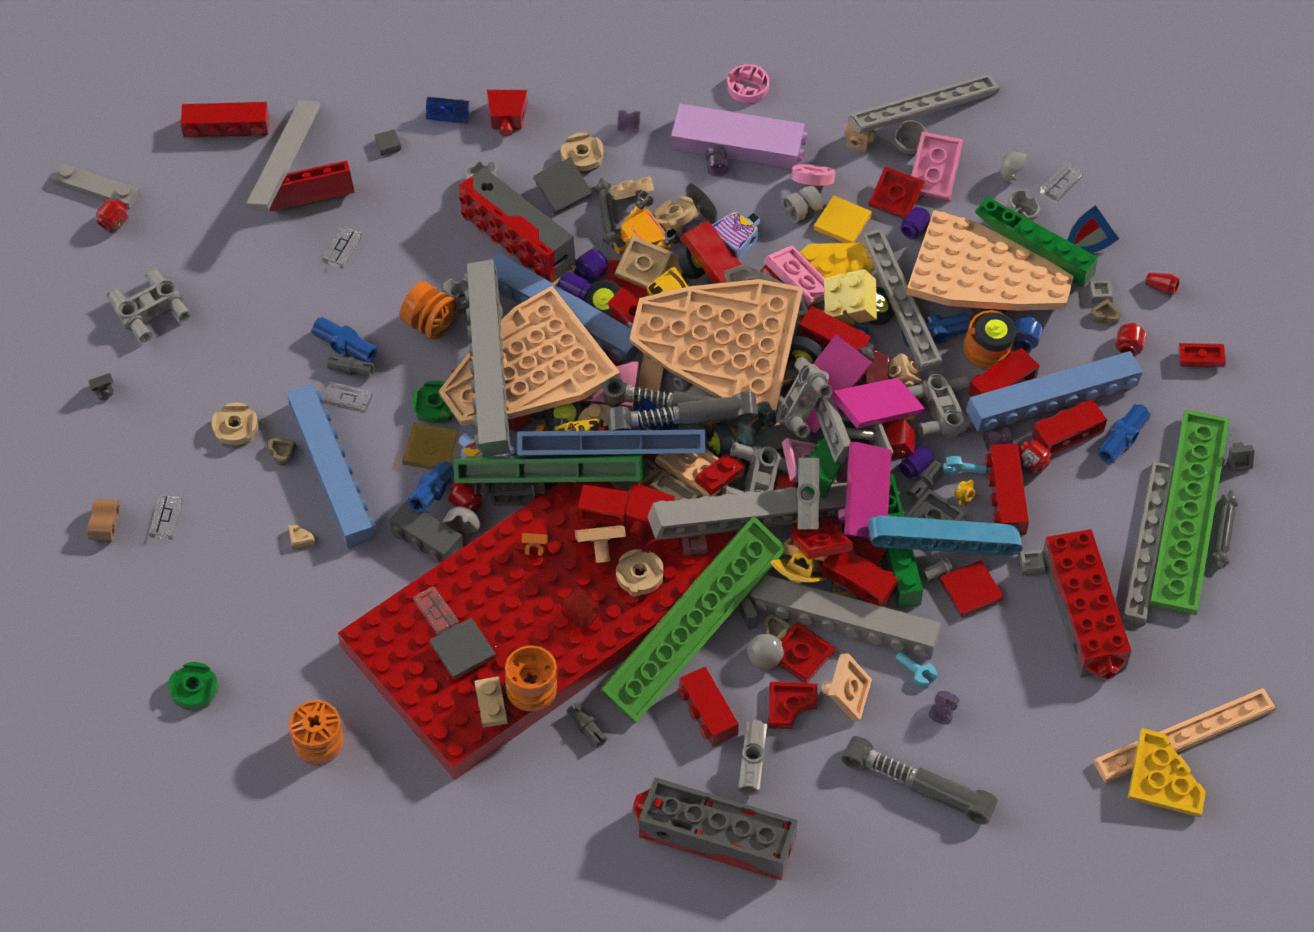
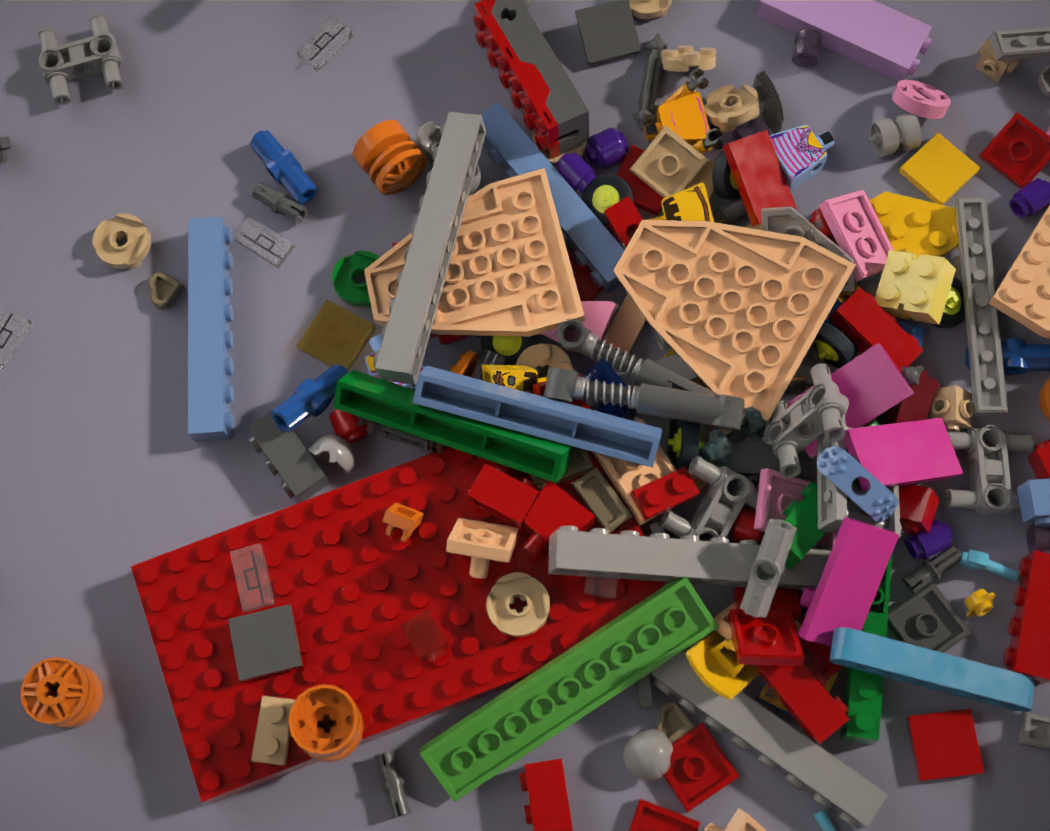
camera: 25 degrees right, 15 degrees up
(300, 537) = (144, 412): tan tile -> none
(838, 414) = (843, 469): none -> medium blue piece
(937, 569) = (908, 704): light grey pin -> none

